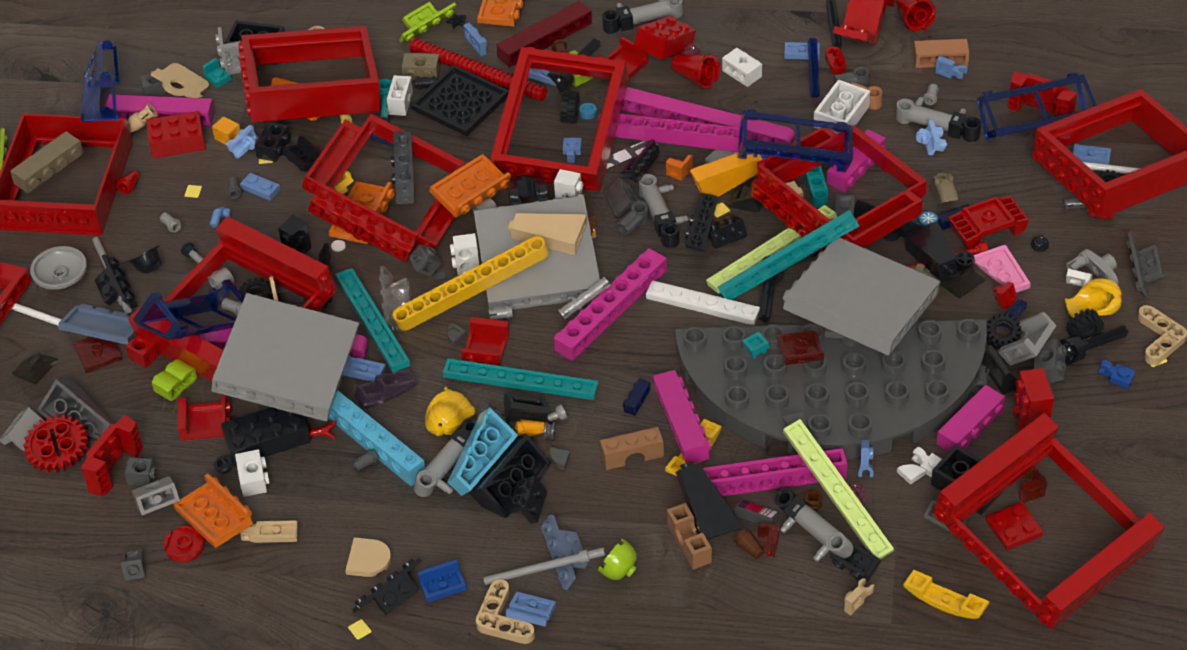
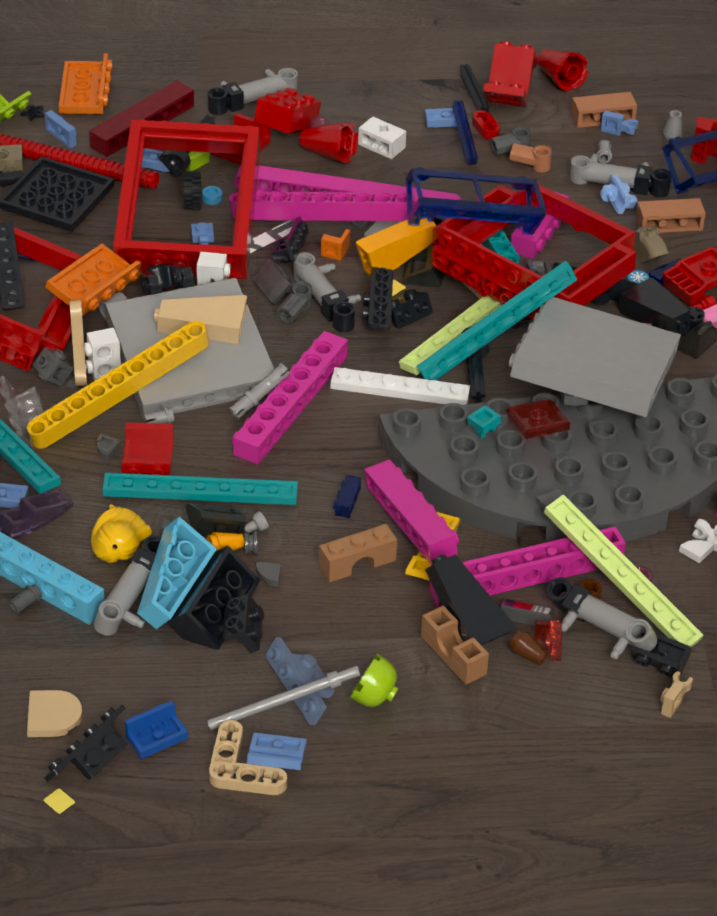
camera: 15 degrees left, 5 degrees down
(447, 233) = (78, 343): none -> tan beam
(843, 104) = (510, 161): white brick -> none
(866, 454) = (642, 531): medium blue plate -> none
(972, 161) = (671, 215): none -> nougat brick
(997, 77) = (673, 126): none -> light grey cone

